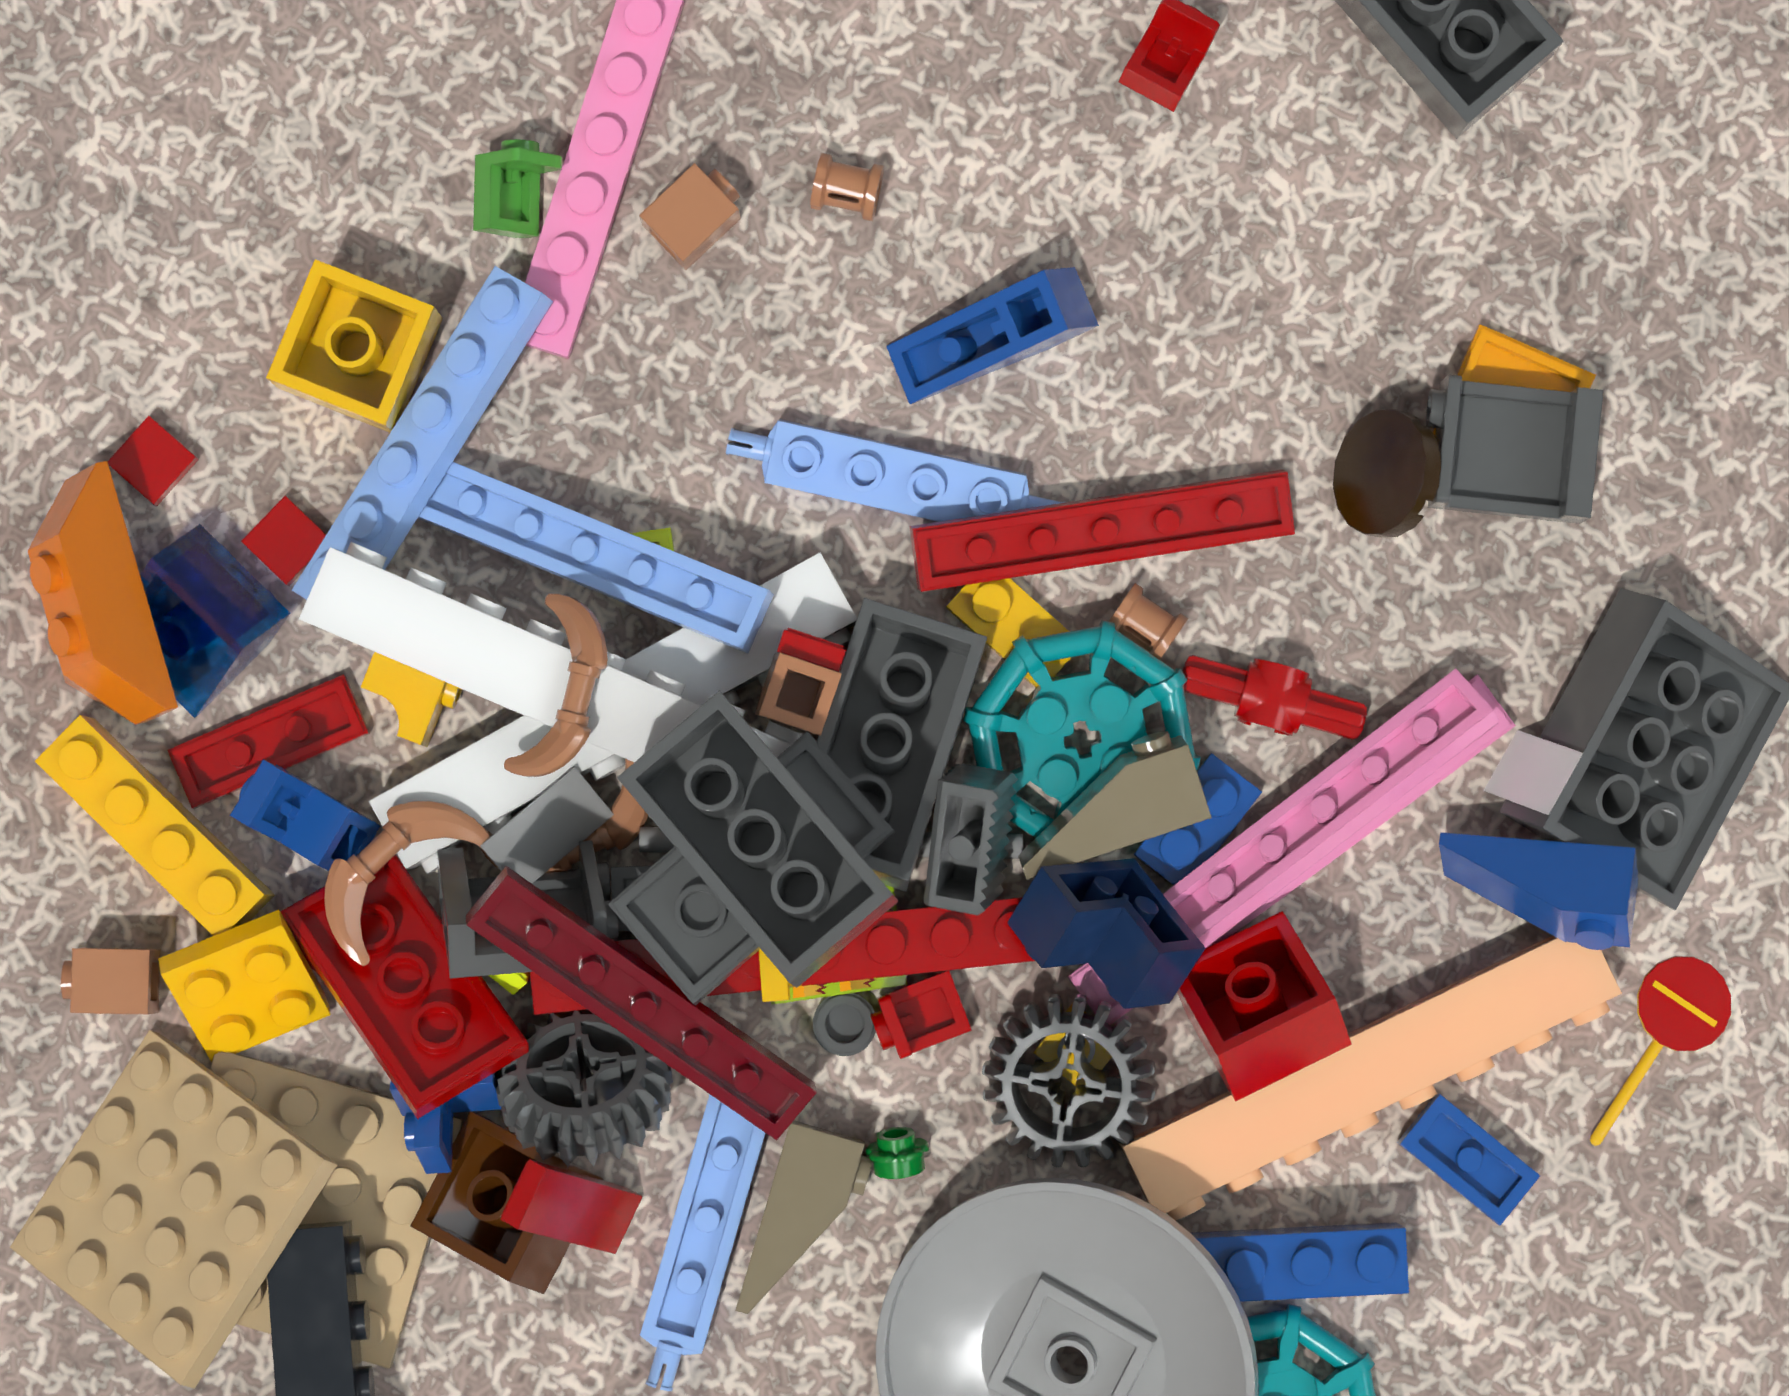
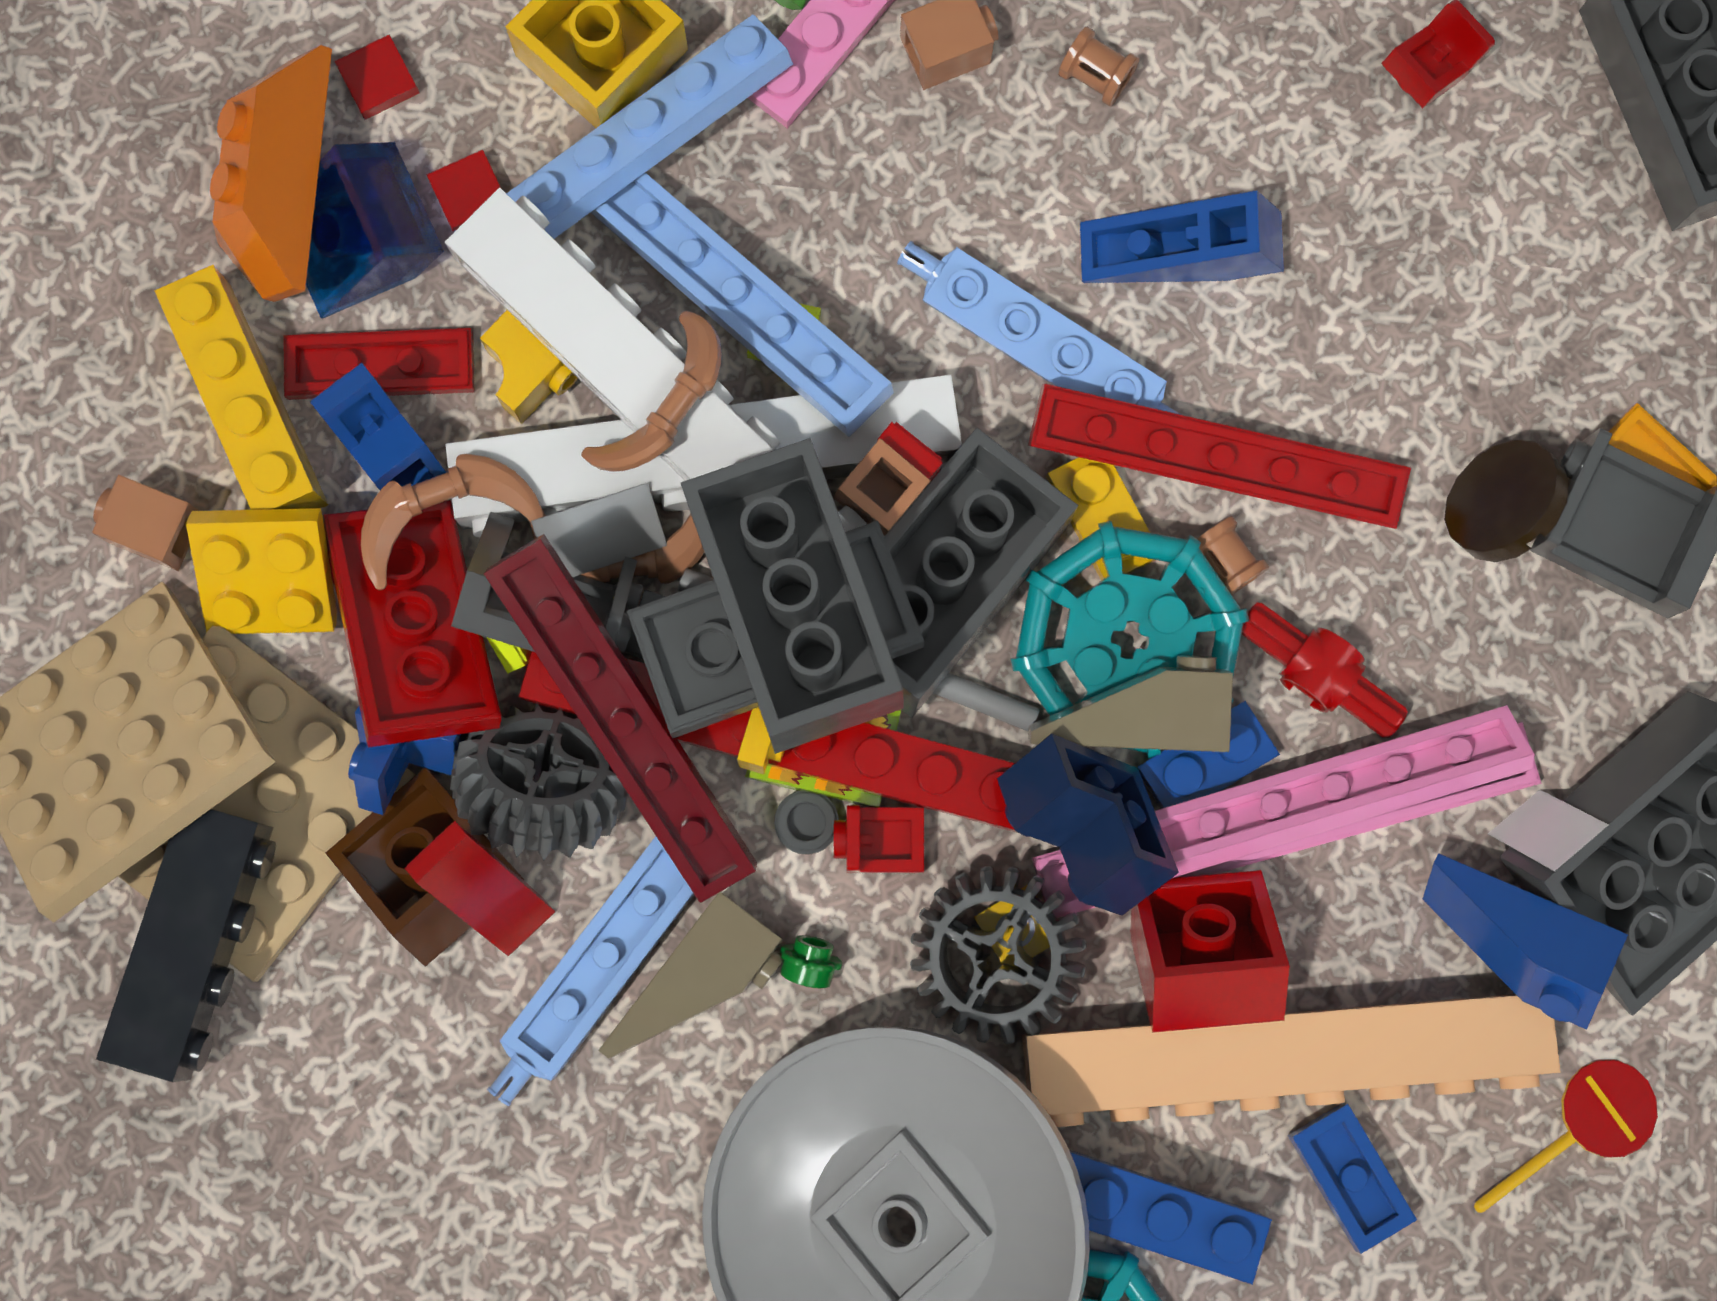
camera: 20 degrees right, 5 degrees down
(969, 838) = (990, 686): dark grey brick -> none

